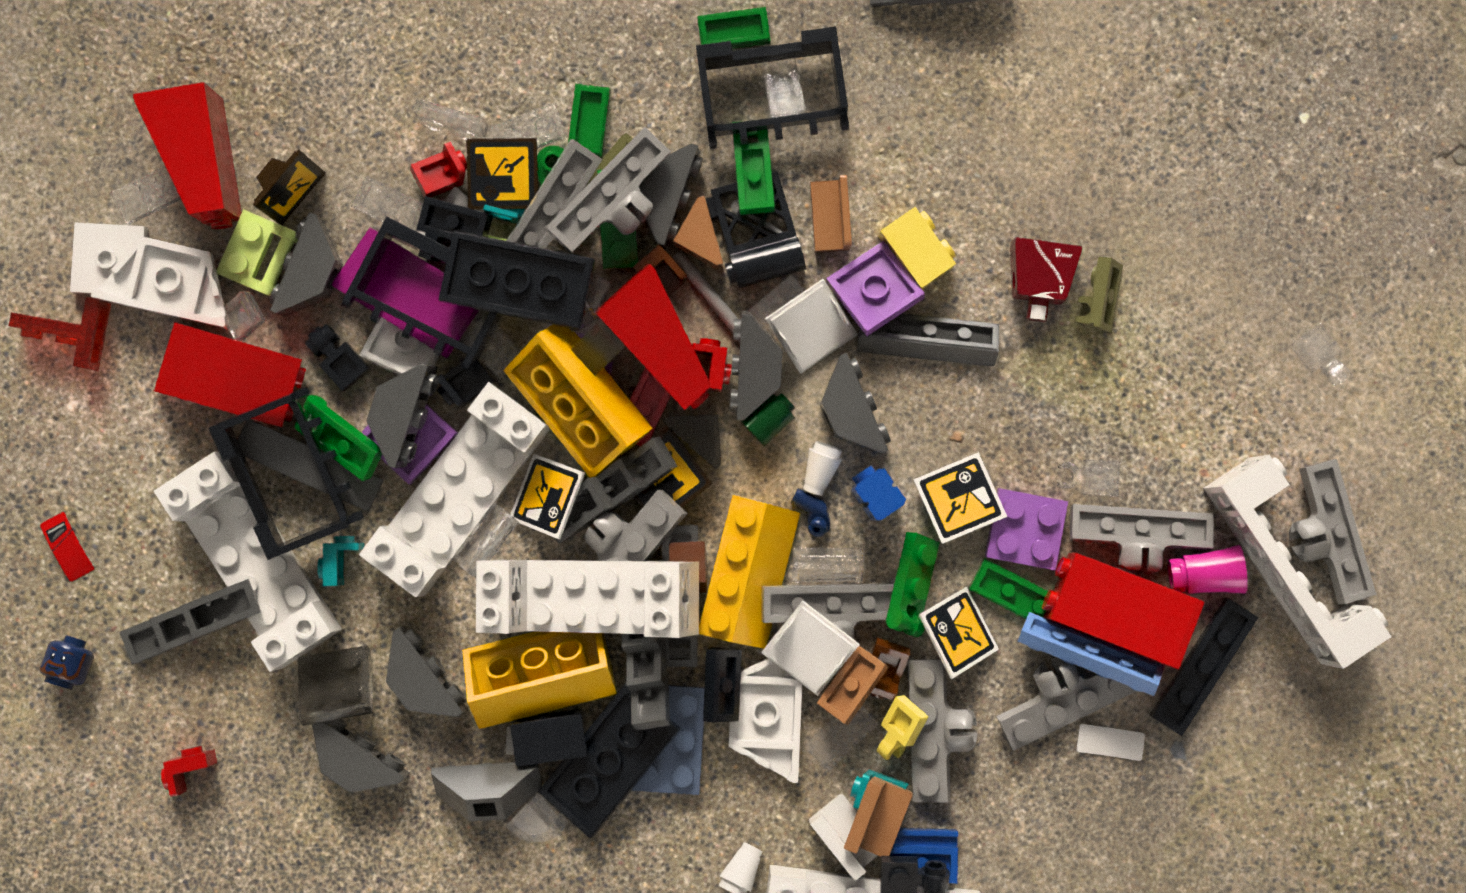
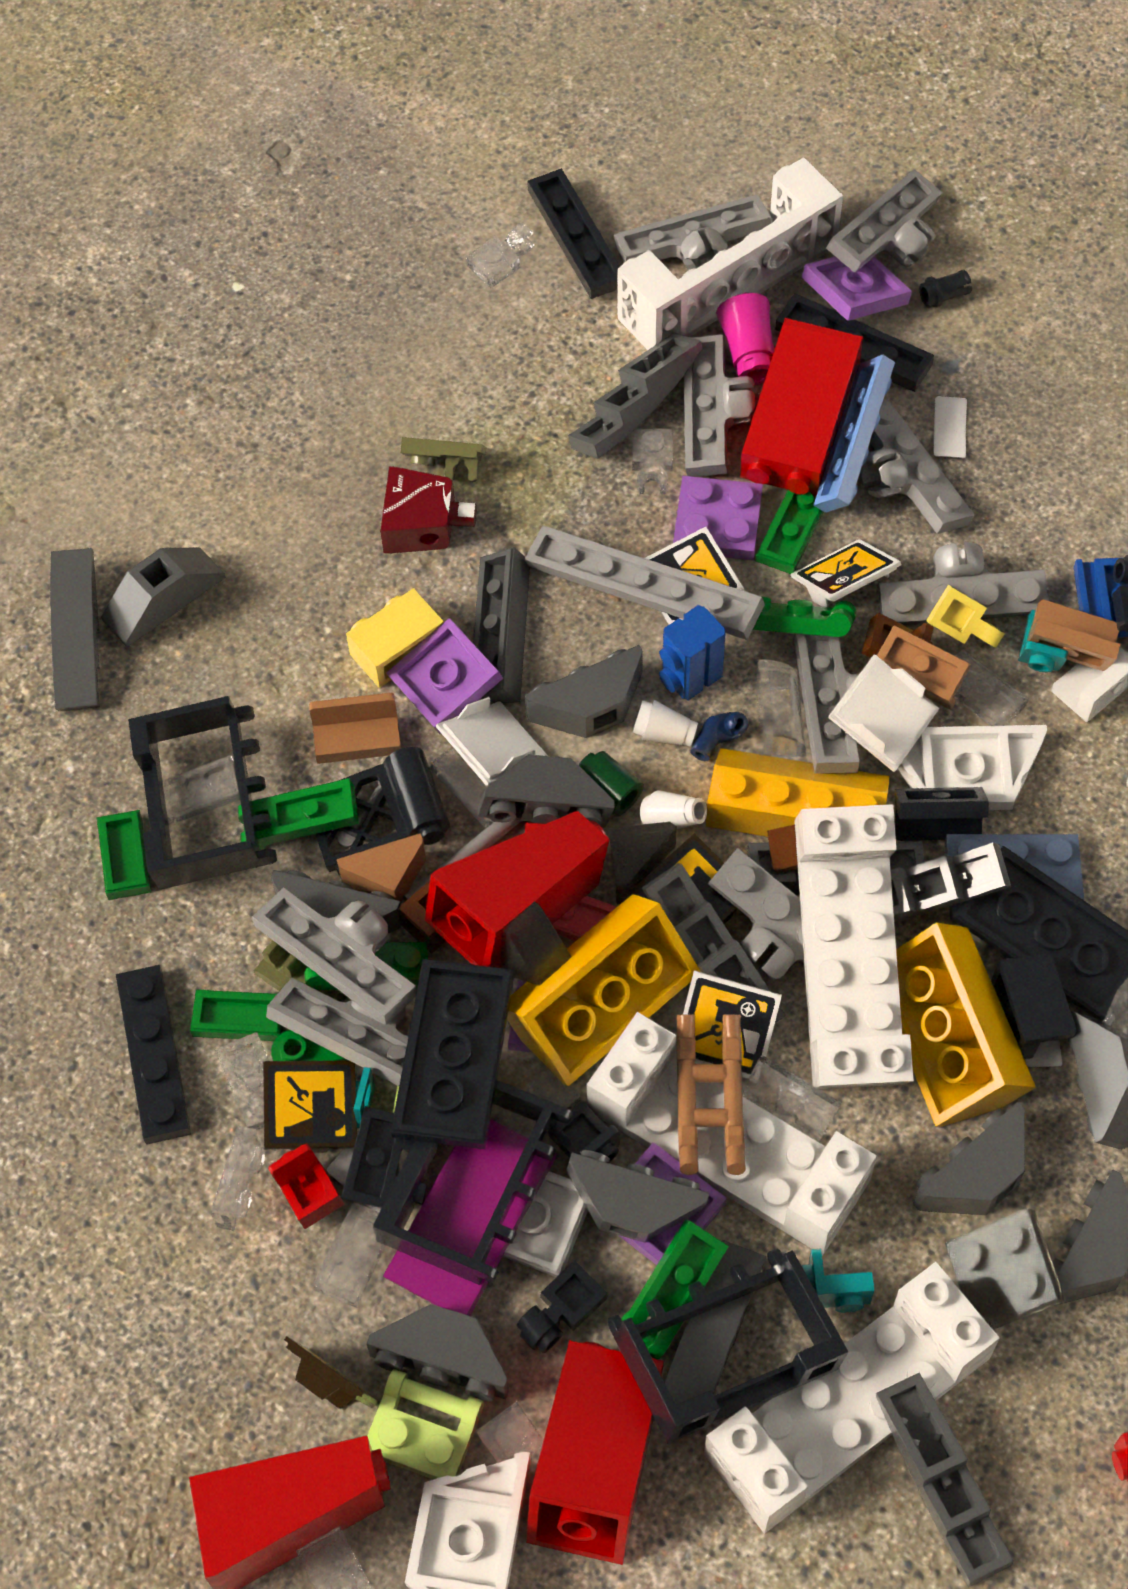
camera: 90 degrees left, 25 degrees down
(469, 493) = (728, 1073): none -> medium nougat piece
(560, 56) = (153, 1055): none -> black plate
(736, 465) = (672, 808): none -> white cone
(951, 459) = (642, 580): none -> light grey plate
(974, 54) = (158, 590): none -> dark grey slope
(1160, 473) = (642, 389): none -> dark grey slope
(1260, 756) = (937, 290): none -> black pin
(1263, 674) = (858, 293): none -> medium lavender plate
(1329, 713) = (889, 225): none -> light grey plate
(1342, 424) = (575, 232): none -> black plate

